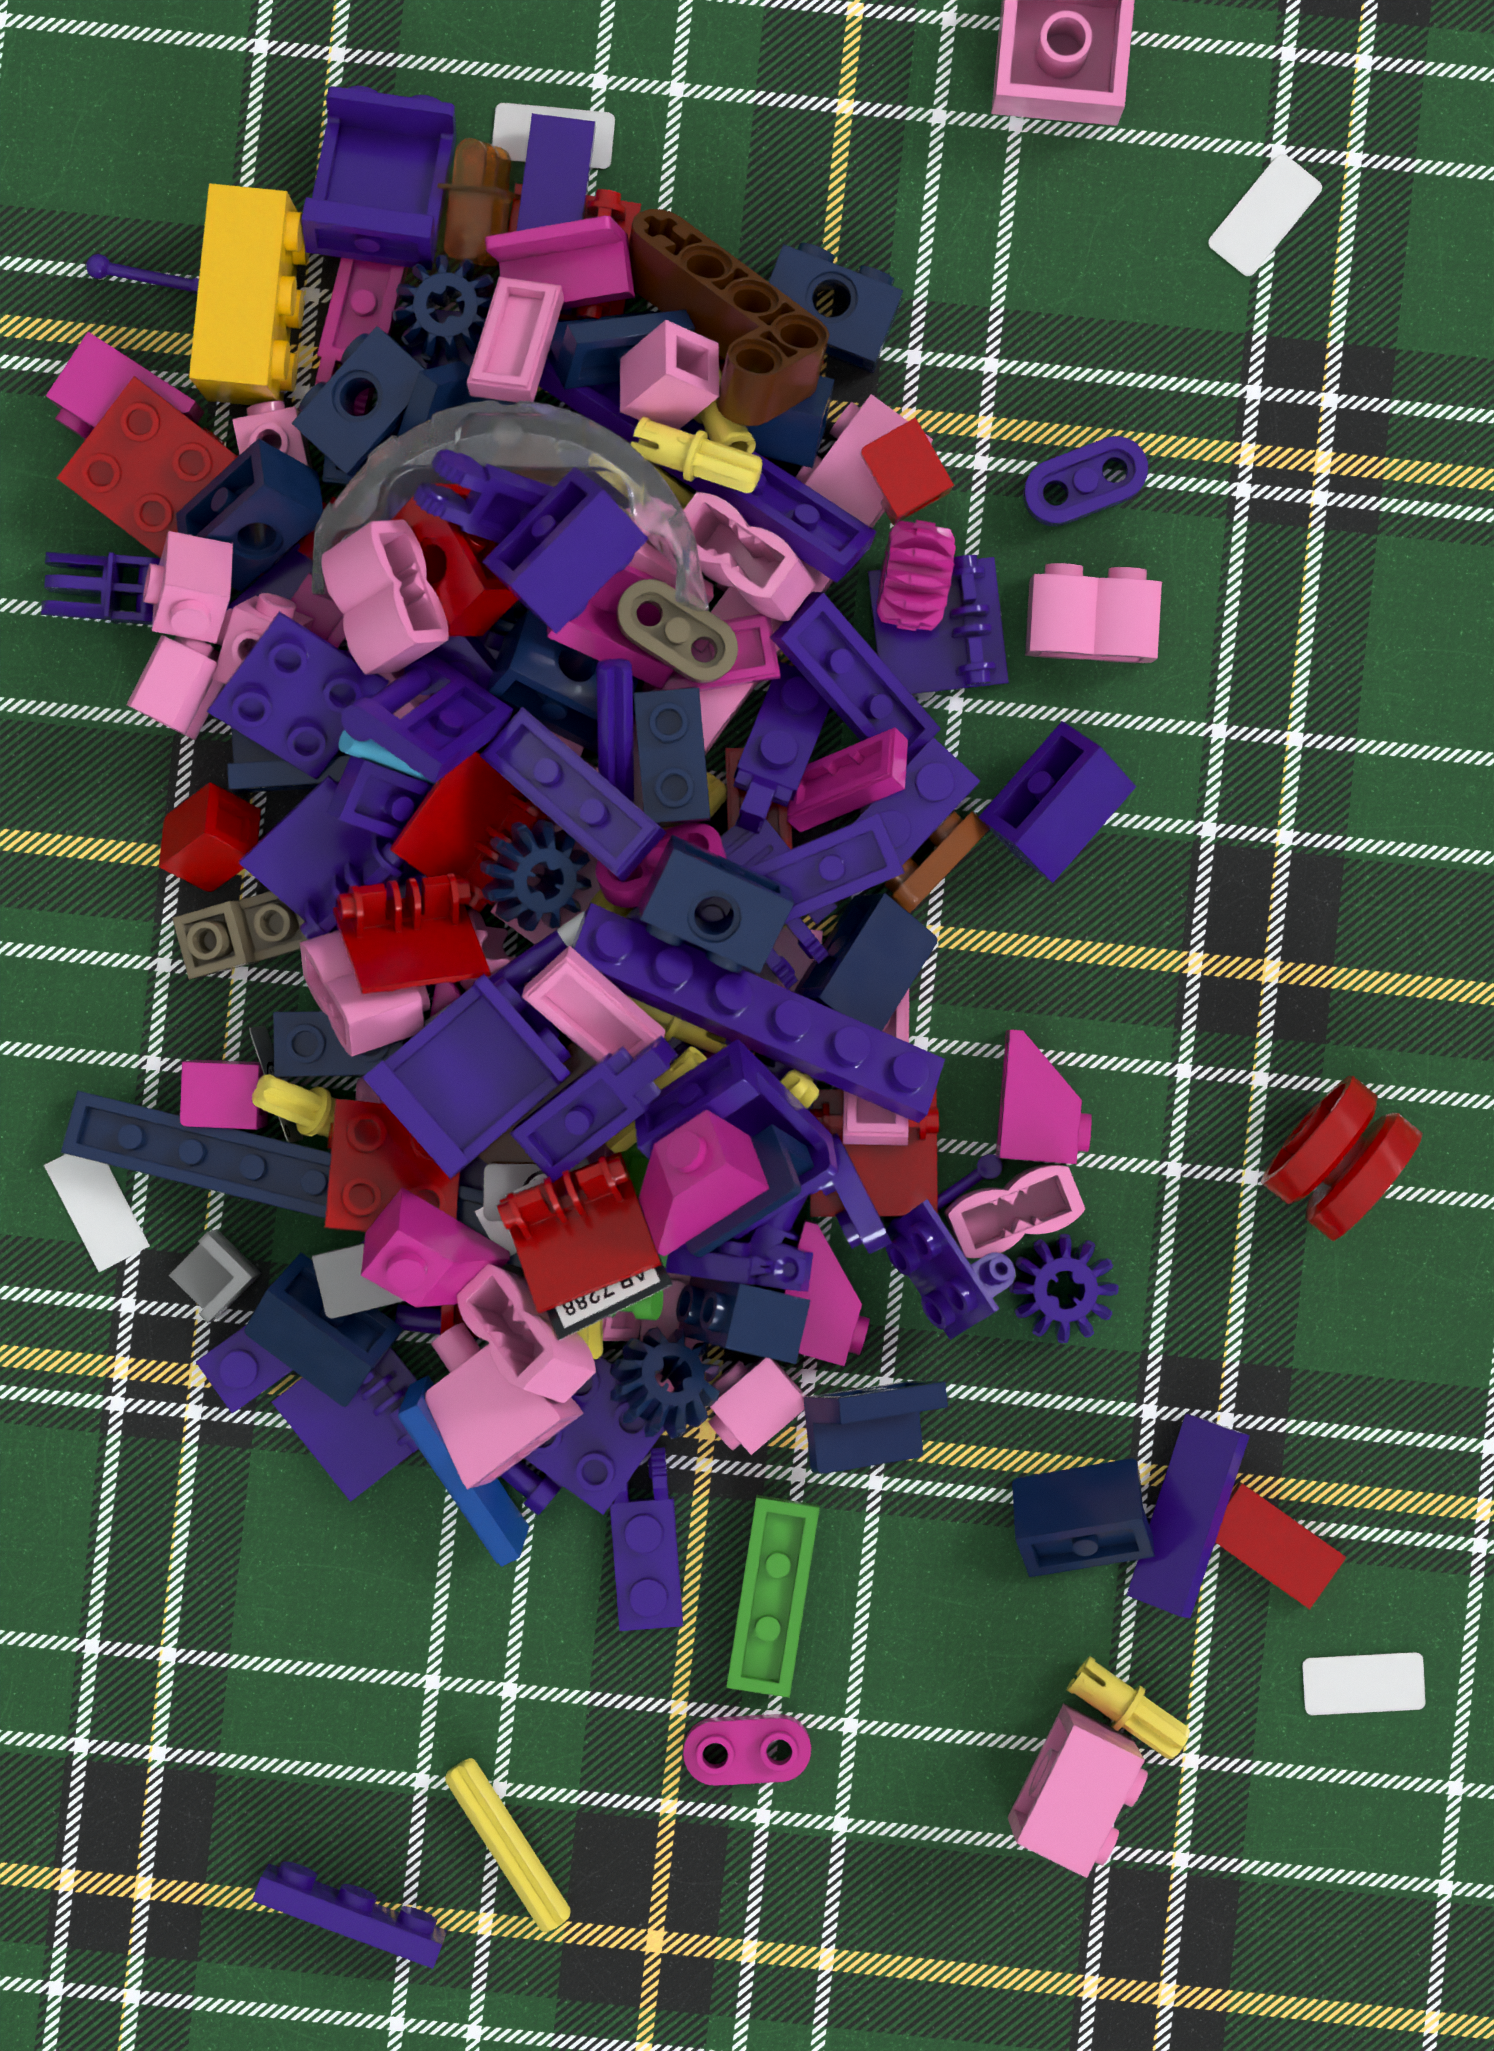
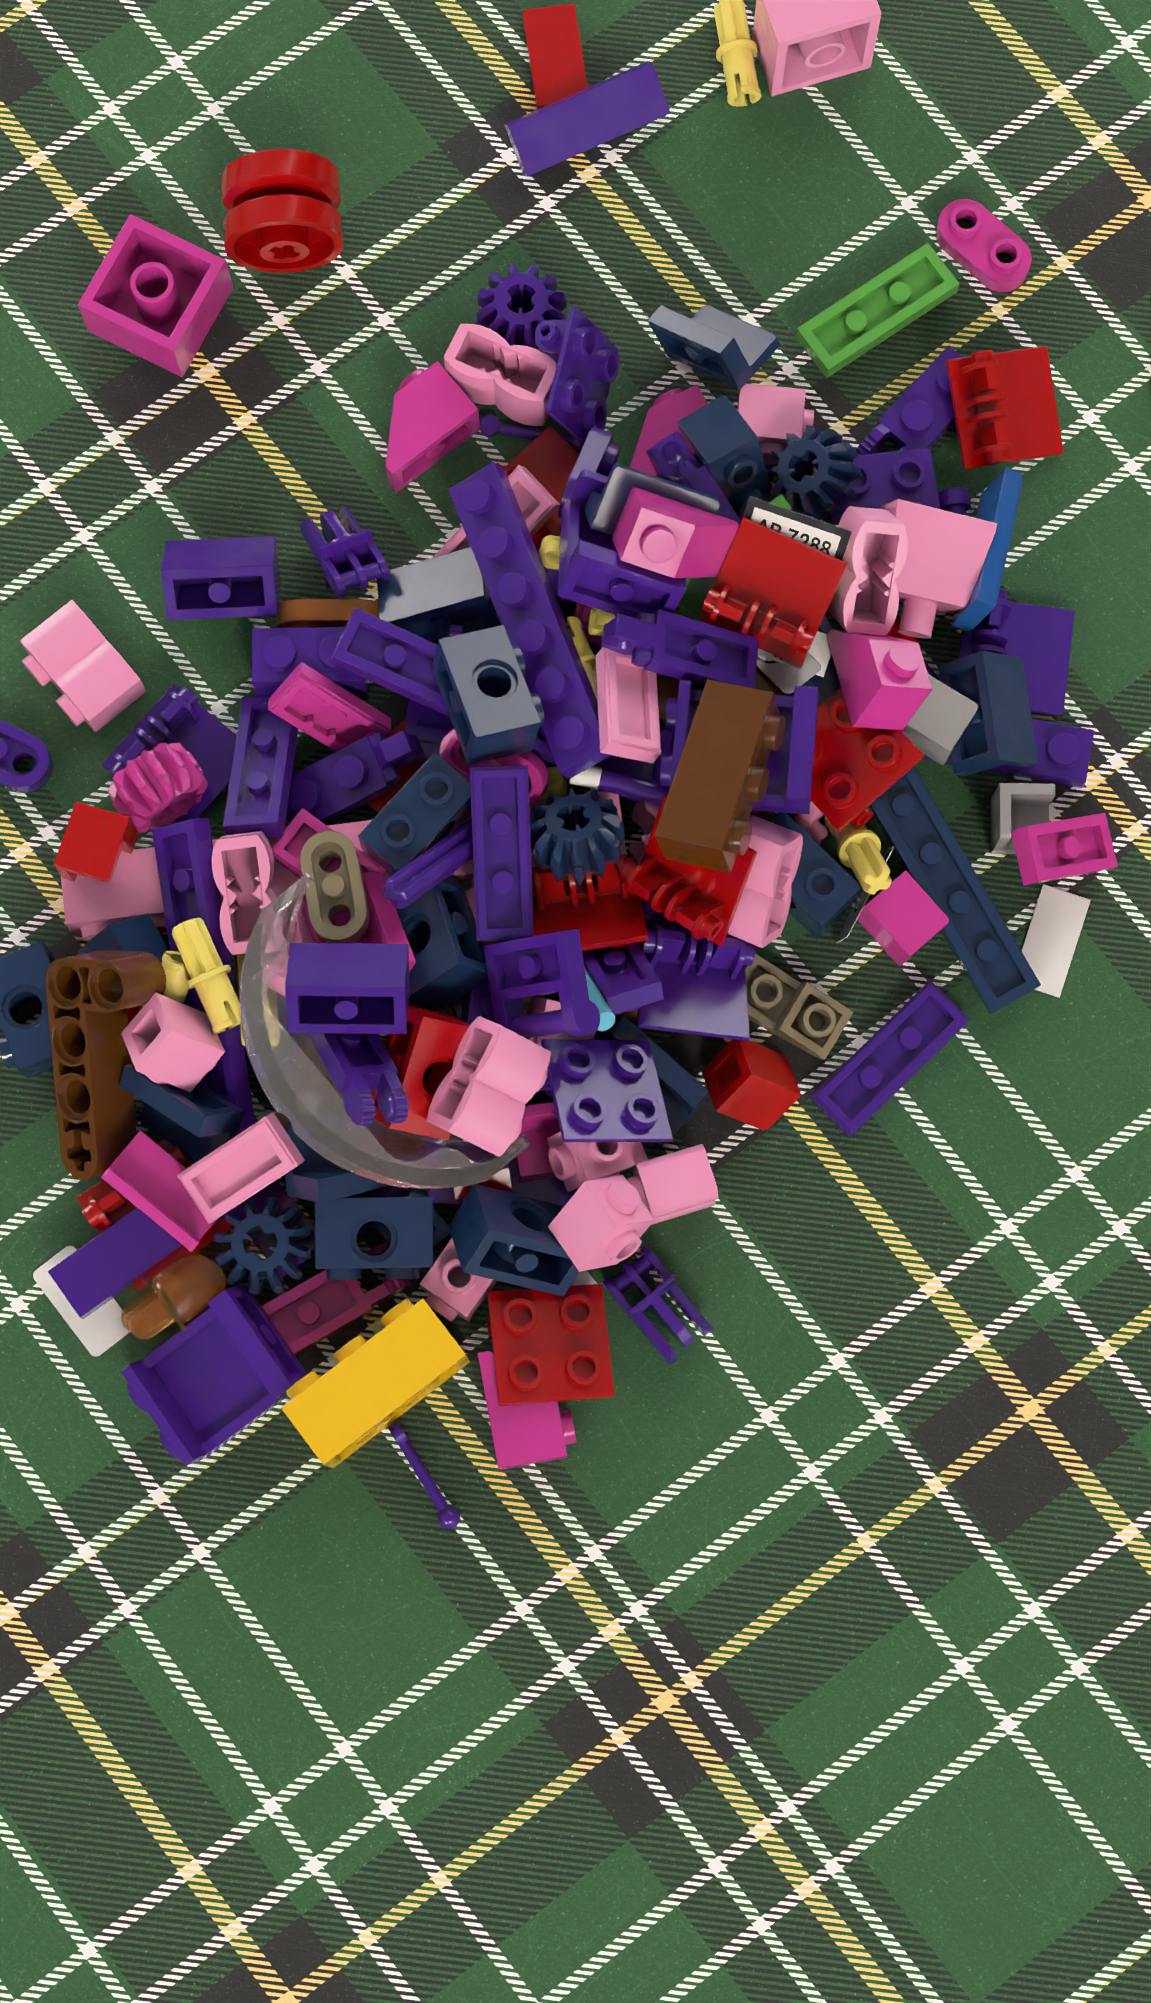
camera: 140 degrees left, 10 degrees down
(124, 973) = (889, 1059): none -> dark purple tile
(151, 1281) = (1064, 848): none -> dark pink plate
(450, 1023) = (720, 776): none -> reddish brown brick
(578, 1615) = (1004, 406): none -> red hinge
(978, 926) = (345, 552): none -> dark purple arm
(1081, 1518) = (648, 176): dark blue panel -> none
(1370, 981) = (156, 295): none -> dark pink brick

